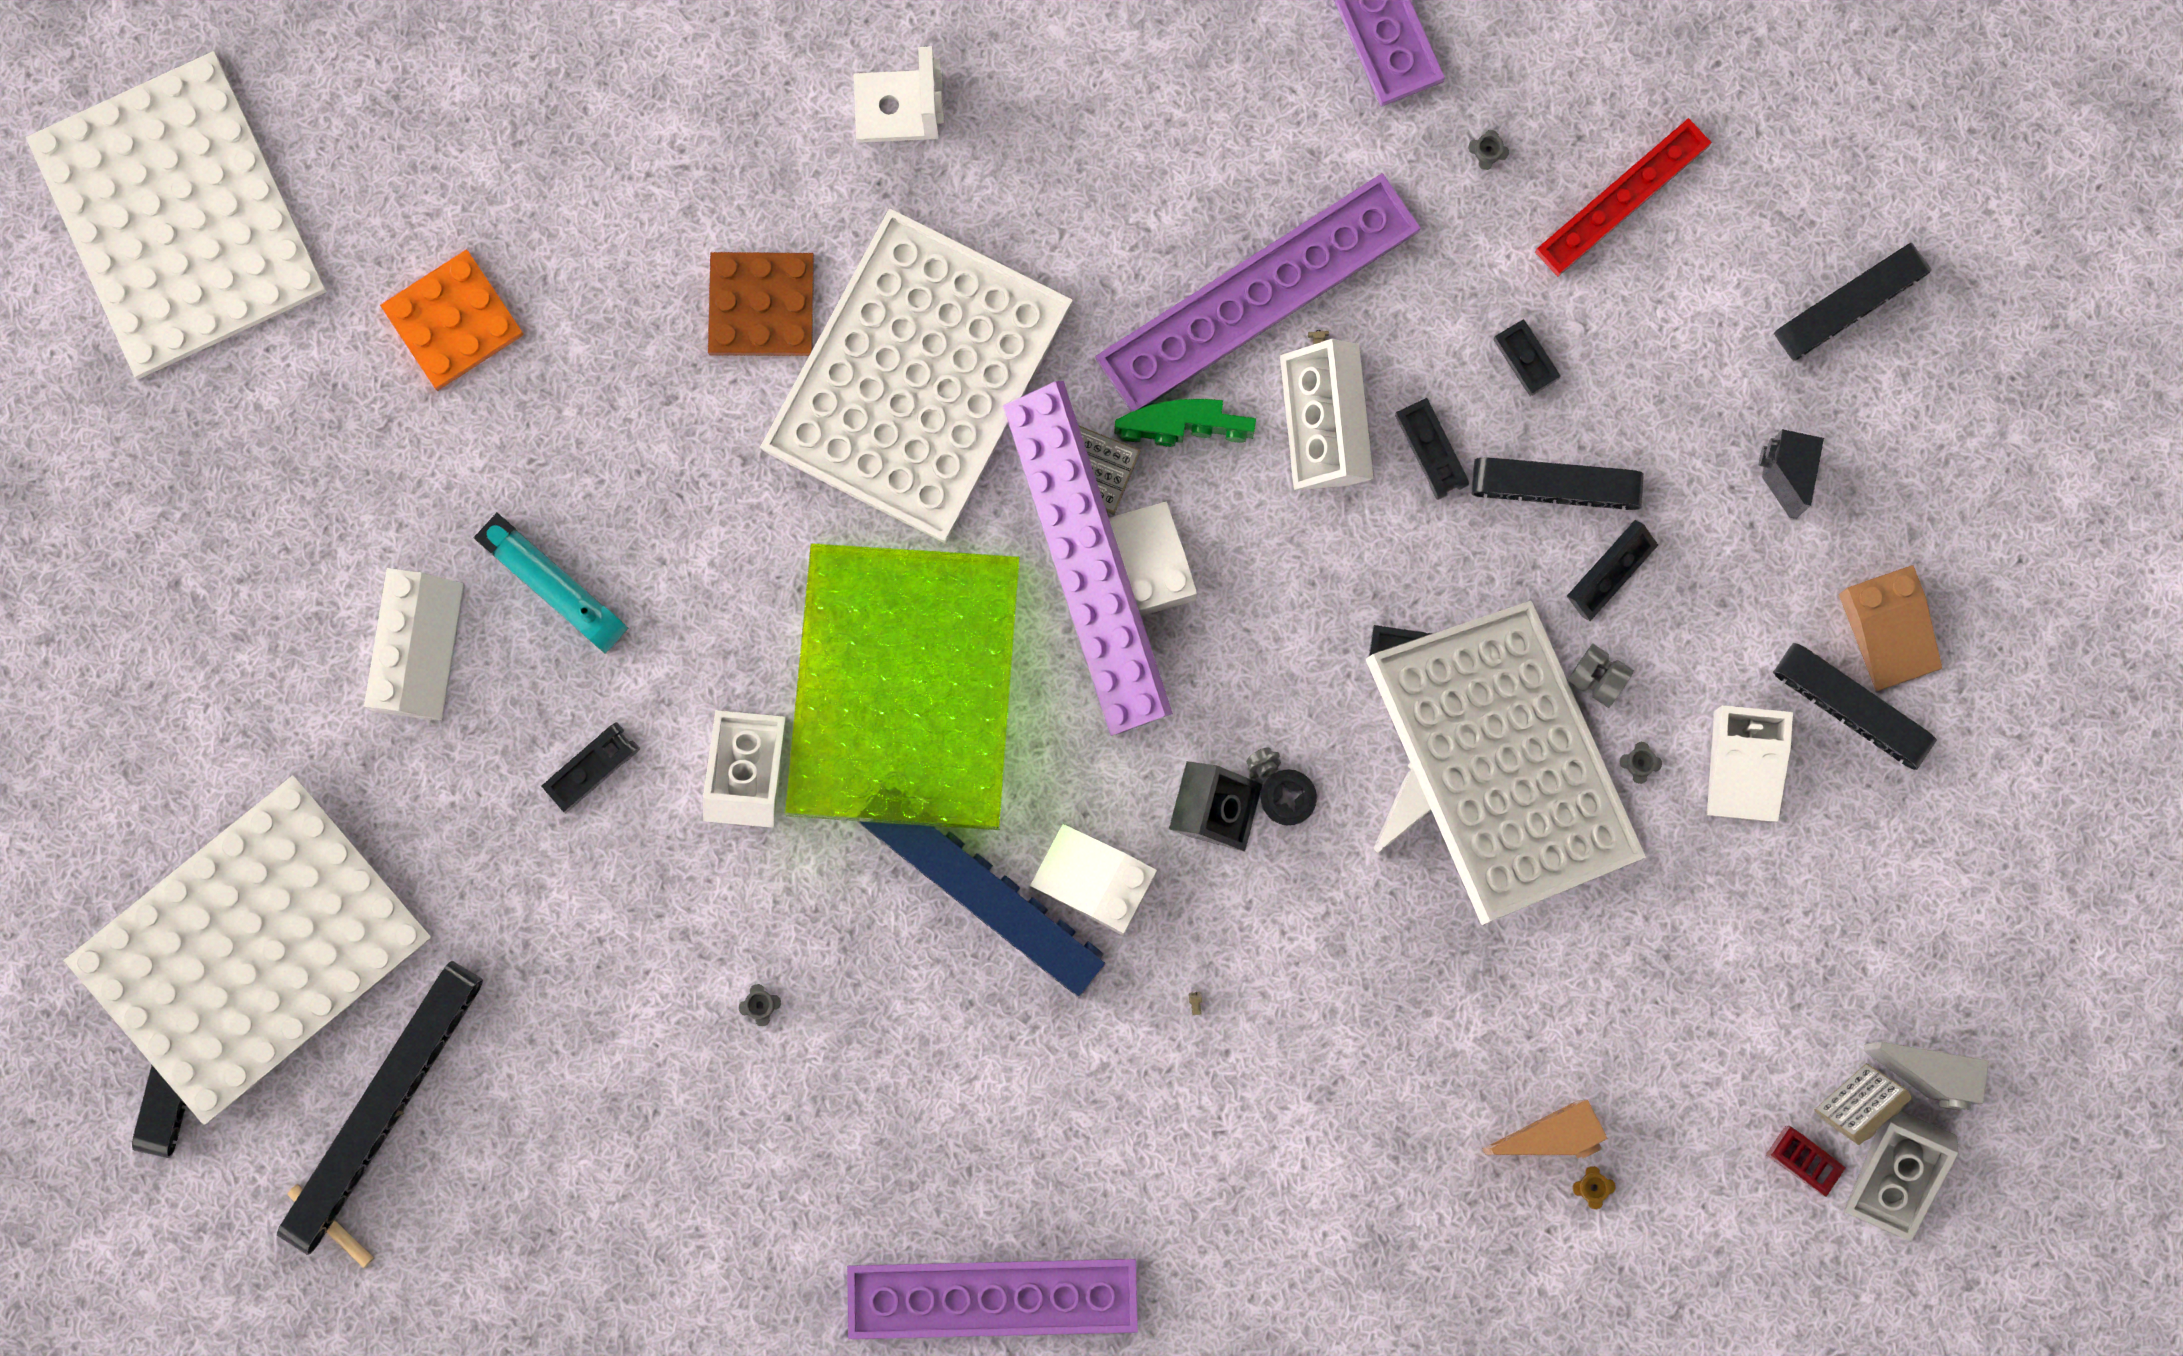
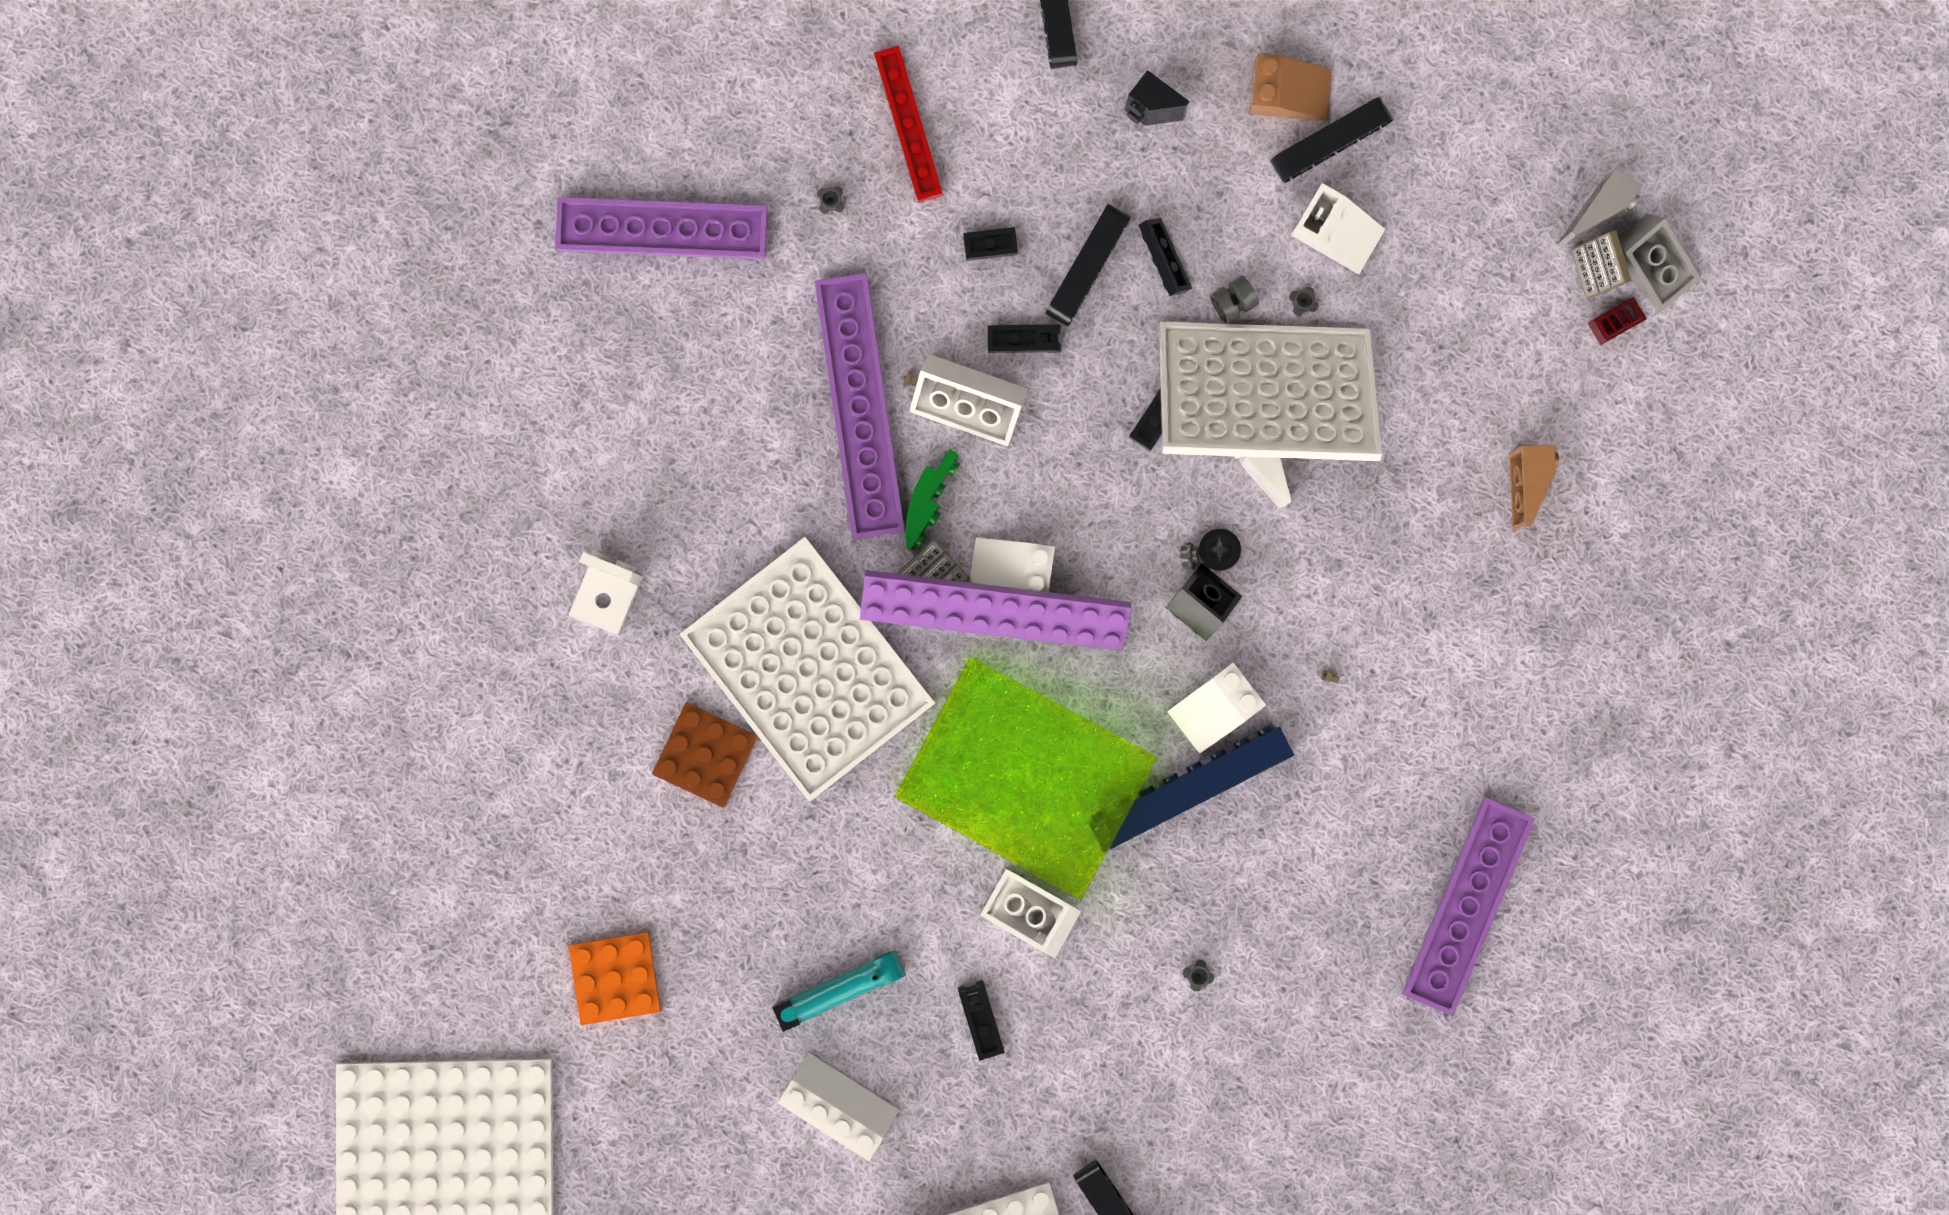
camera: 65 degrees left, 5 degrees up
(1604, 1187) = (1579, 465): pearl gold plate -> none

